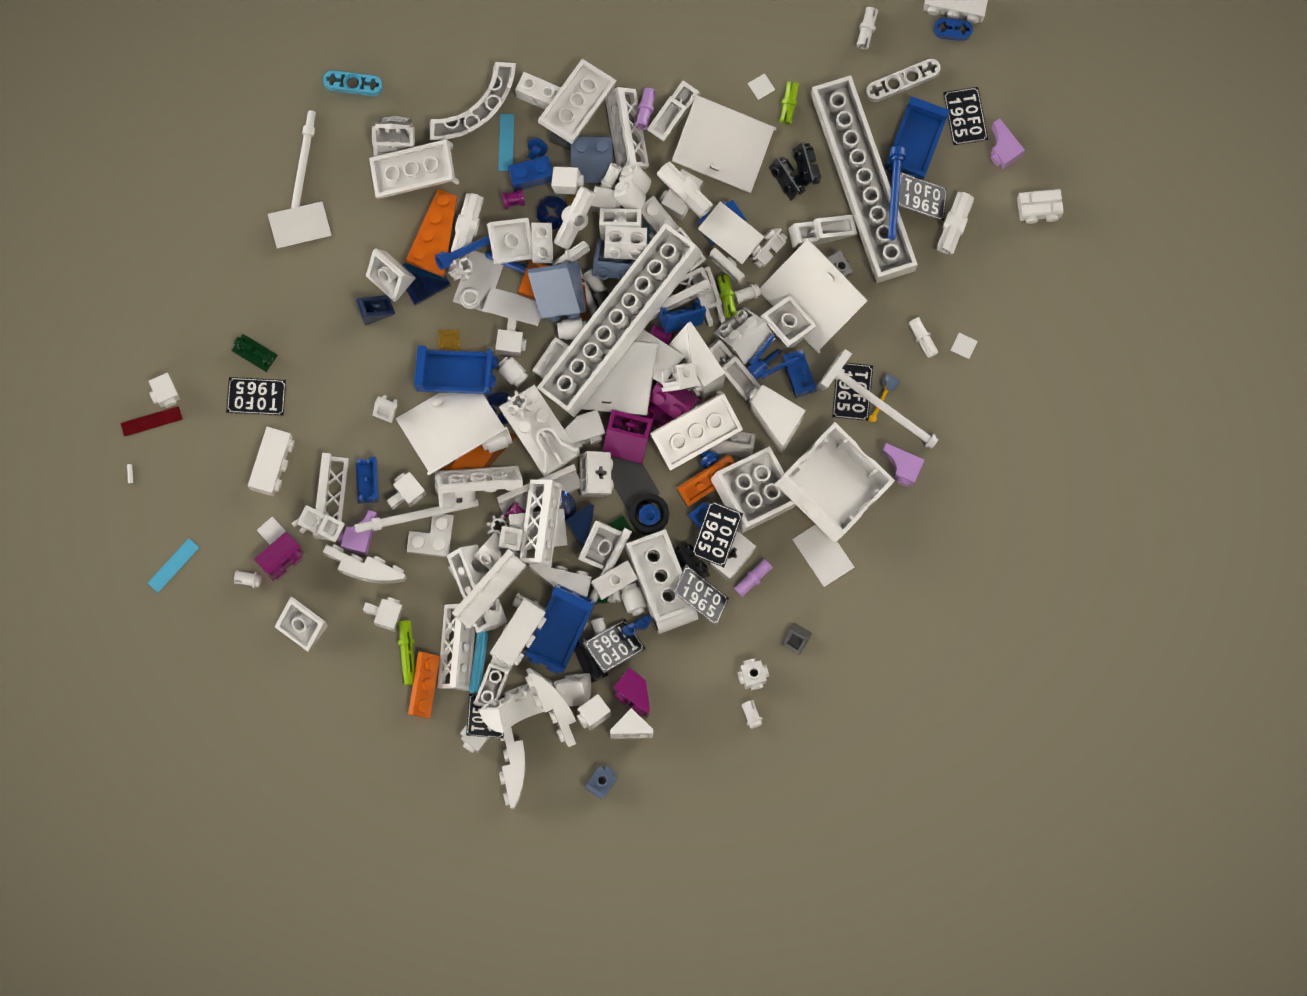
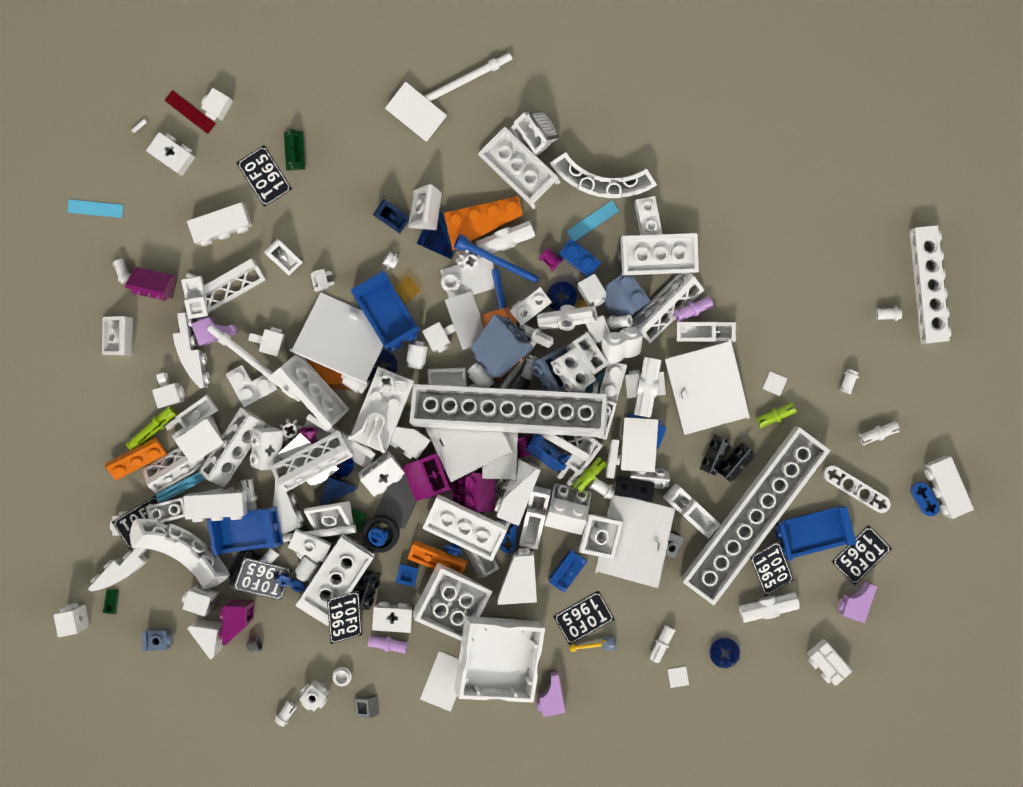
camera: 65 degrees right, 10 degrees up
(187, 459) = (160, 149): none -> white brick
(271, 530) = (172, 261): white sticker -> none
(336, 87) = (544, 60): medium azure beam -> none
(341, 426) = (283, 256): none -> white slope
(367, 480) = (257, 307): blue hinge -> none
(412, 336) = (390, 260): none -> white plate
(423, 606) = (193, 415): none -> white hinge
(444, 604) = (200, 440): none -> white slope
(489, 589) = (230, 461): white fence -> none
(510, 240) = (514, 281): white plate -> none
(510, 538) = (283, 448): white plate -> none
(527, 842) = (71, 619): none -> white brick
(536, 803) = (111, 601): none -> dark green piece
(537, 148) = (604, 248): blue plate -> none
(549, 699) = (184, 566): white slope -> none
(668, 699) = (254, 644): none -> dark grey hinge
(683, 377) = (492, 493): white hinge -> none
(717, 533) = (396, 599): black sticker -> none
(735, 401) = (513, 539): none -> blue beam
(754, 640) = (342, 676): none -> white plate
(758, 367) = (550, 537): blue plant -> none
(766, 265) = (634, 488): none -> black hinge
(803, 22) = (849, 381): none -> white pin
(836, 372) = (586, 598): white tile -> none
(897, 156) = (789, 531): blue piece -> none
(963, 296) = (727, 644): none -> clear blue gear

